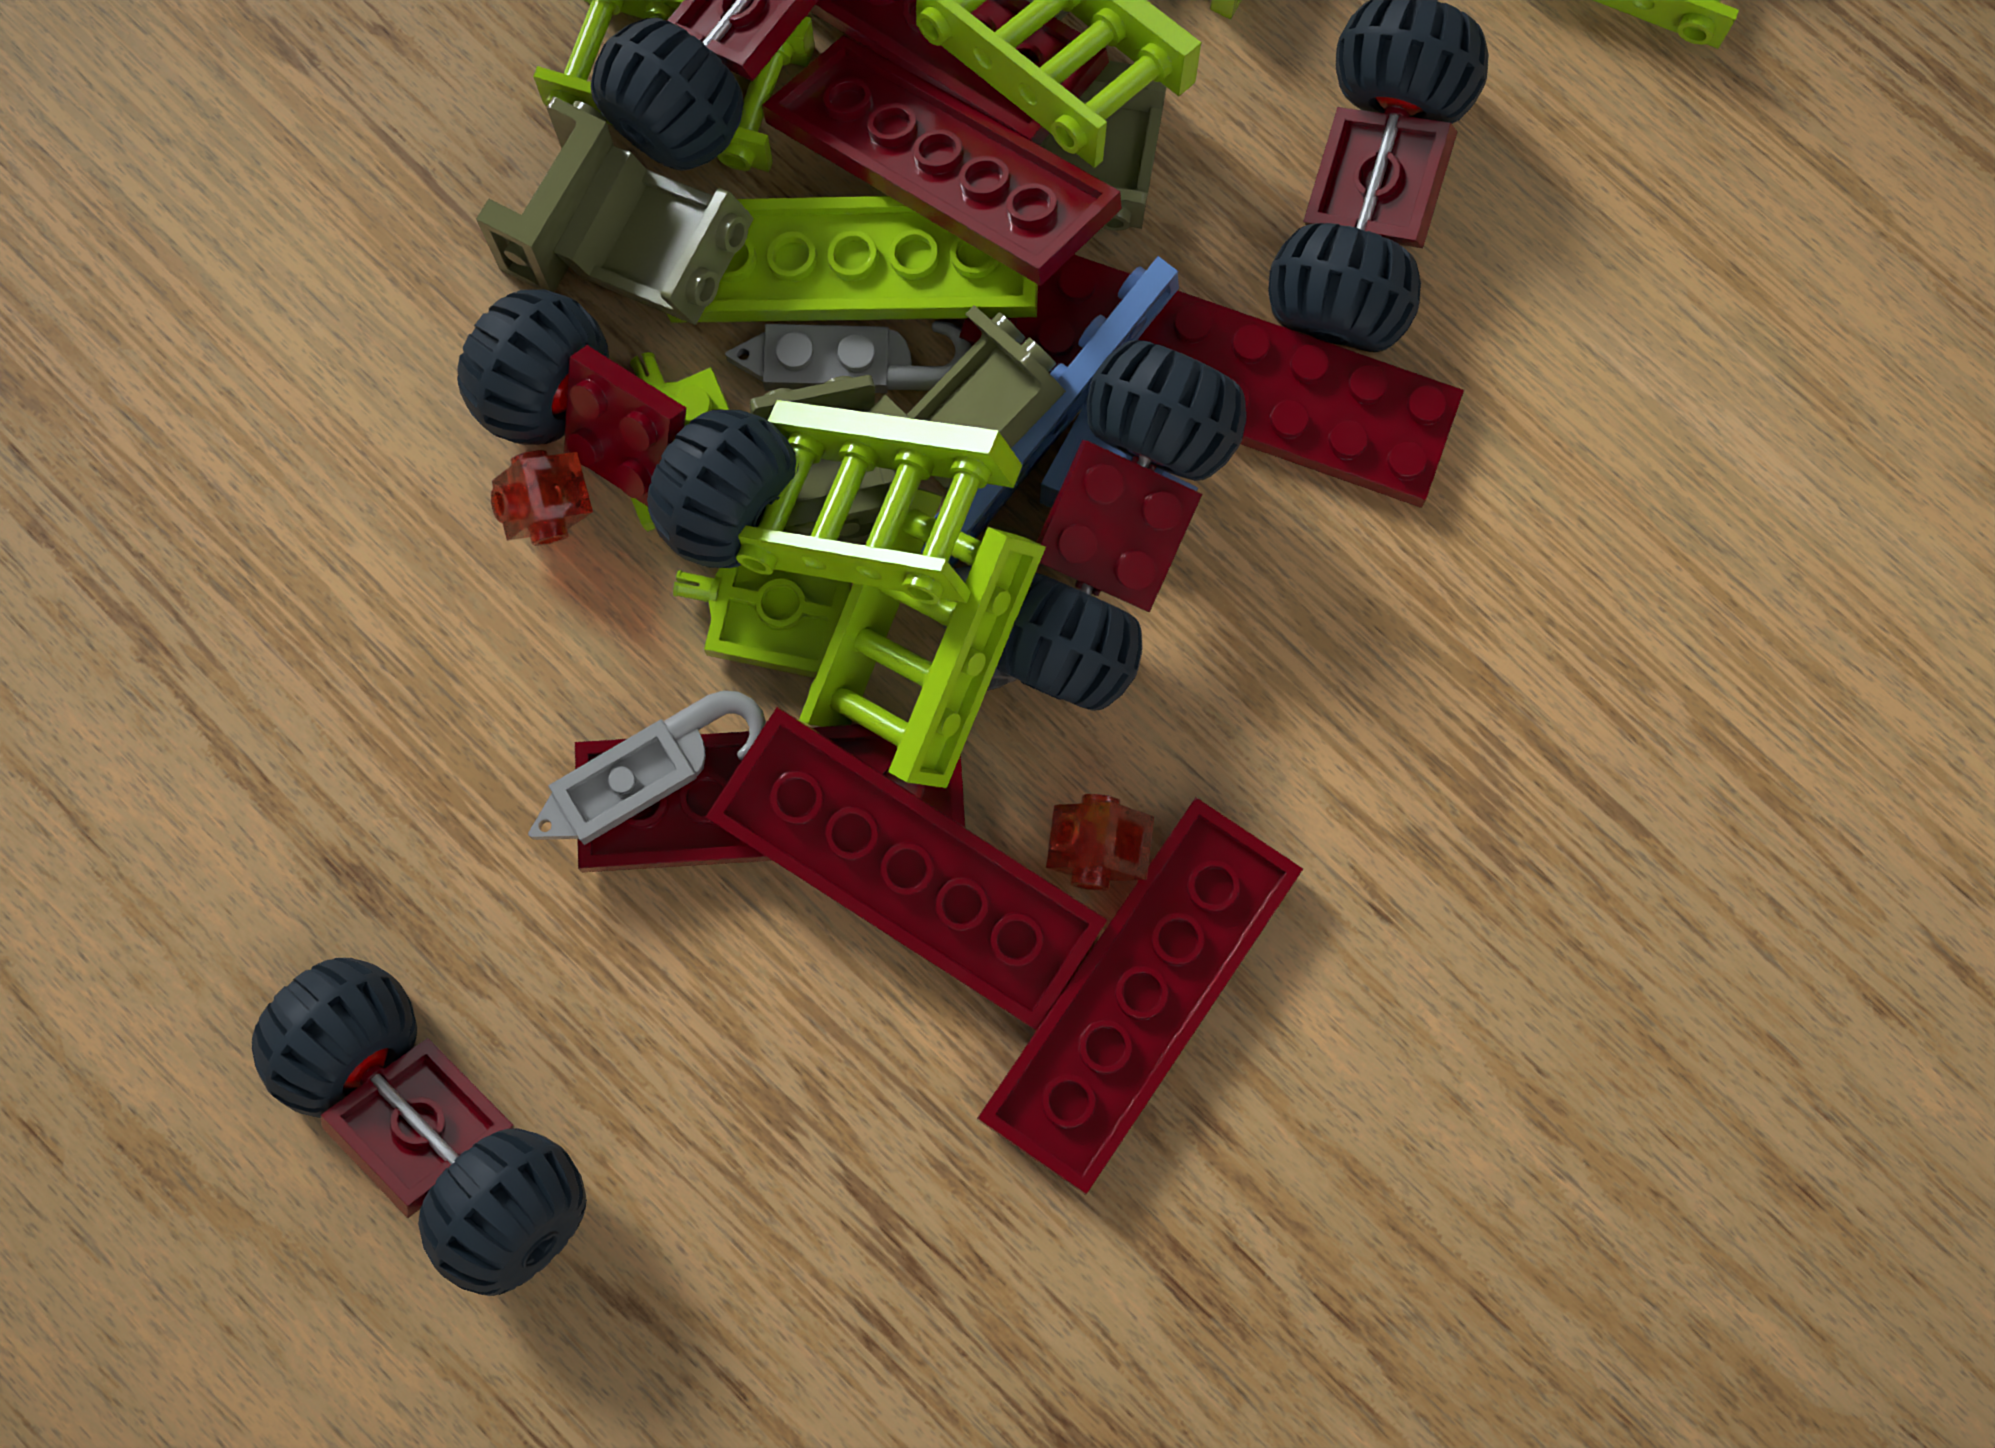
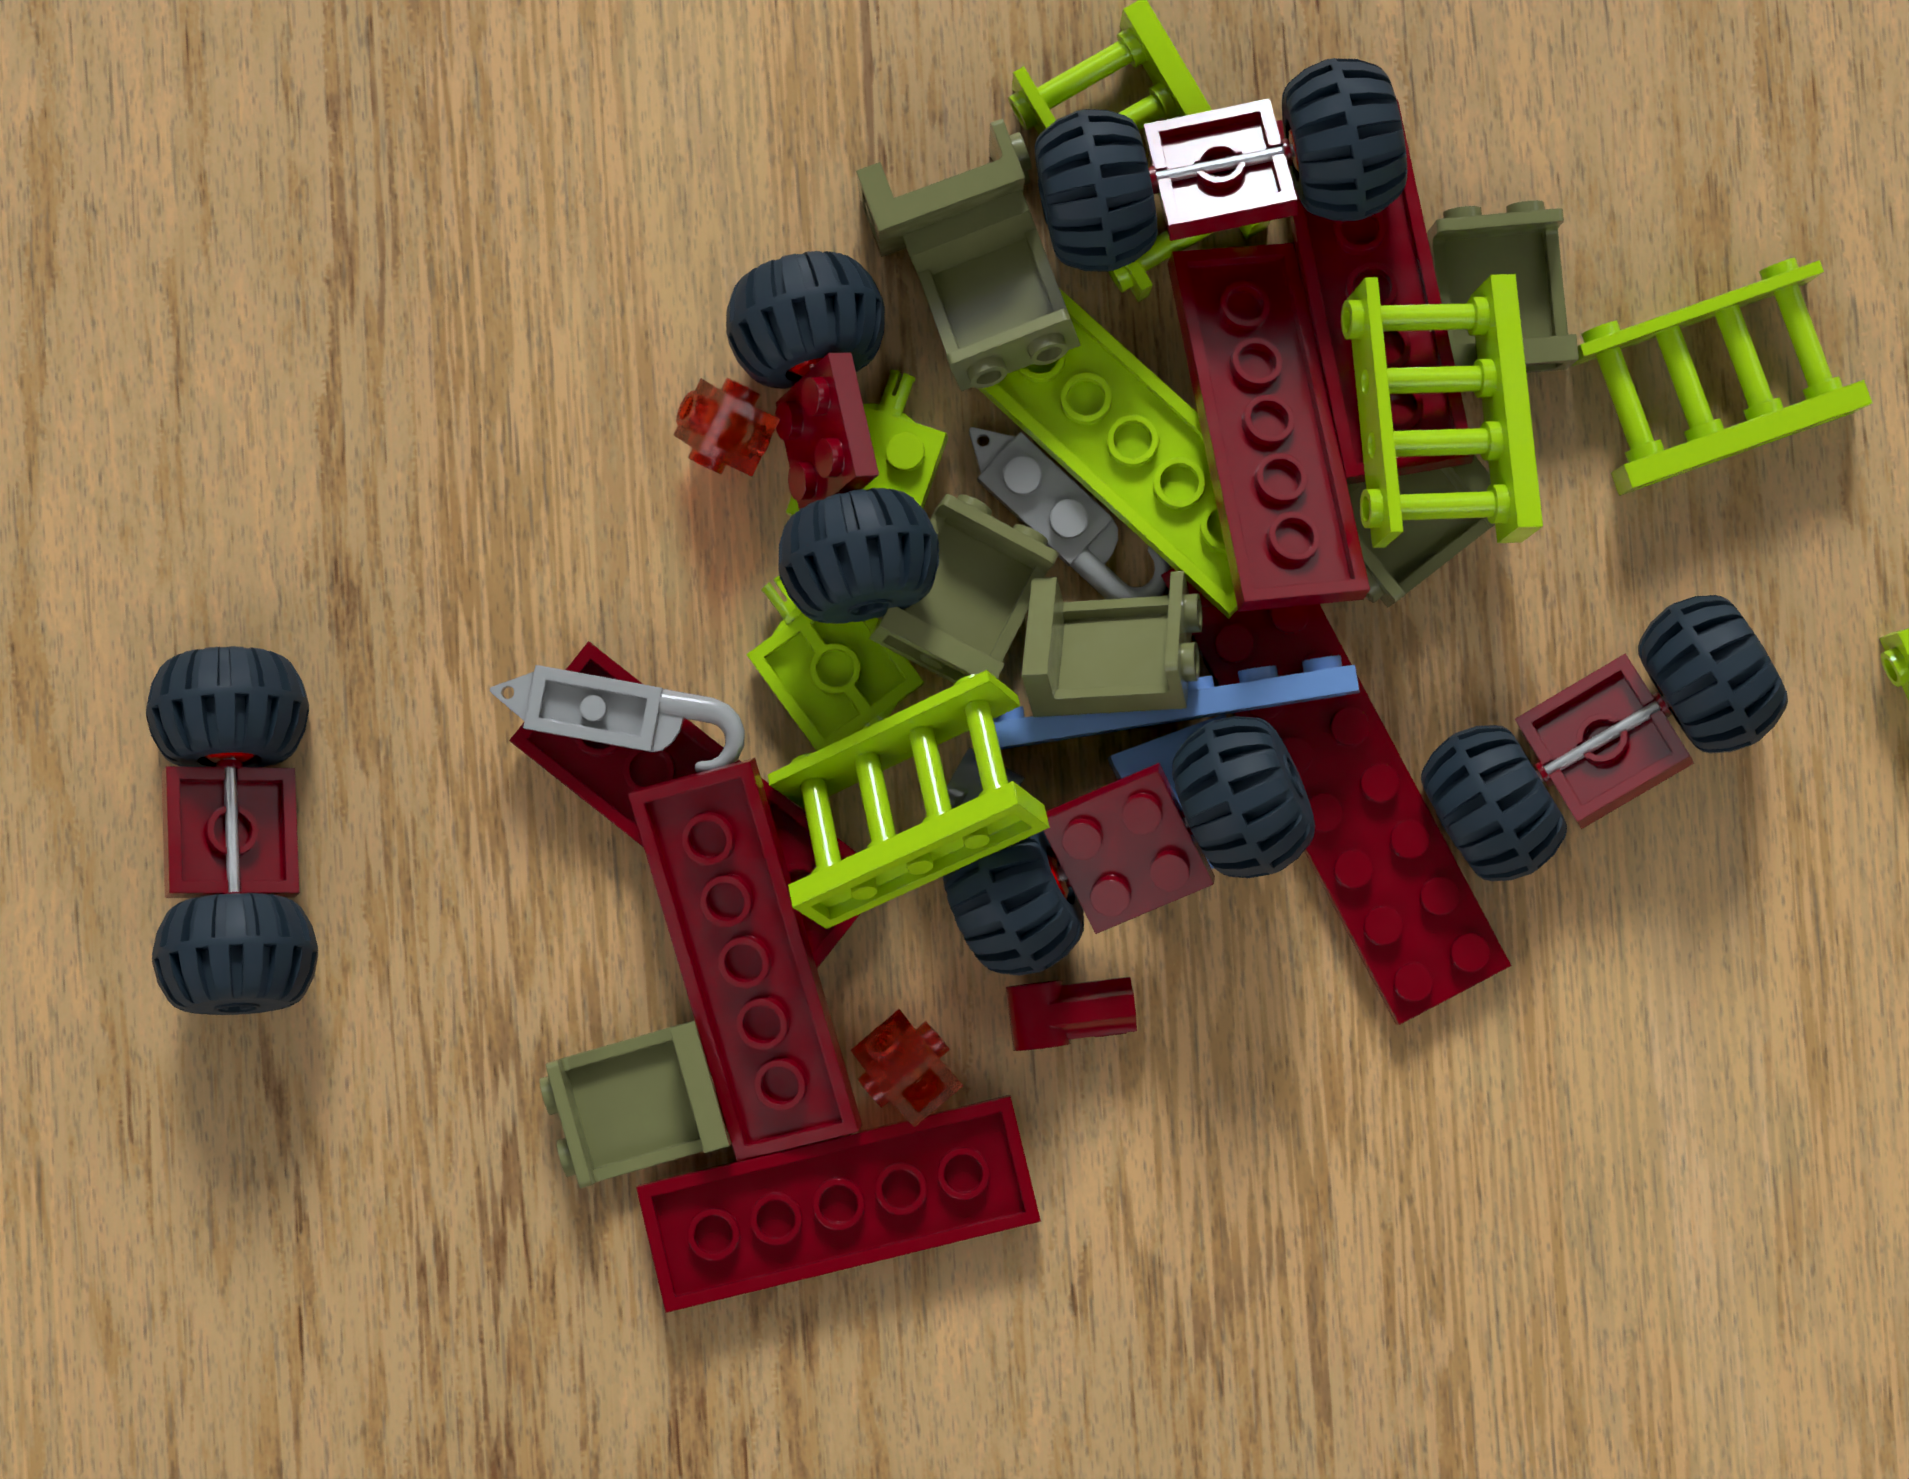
camera: 40 degrees right, 10 degrees up
(862, 443) = (1017, 668): lime fence -> none
(921, 1055) = (634, 1104): none -> olive panel
(1171, 711) = (1054, 1013): none -> dark red piece

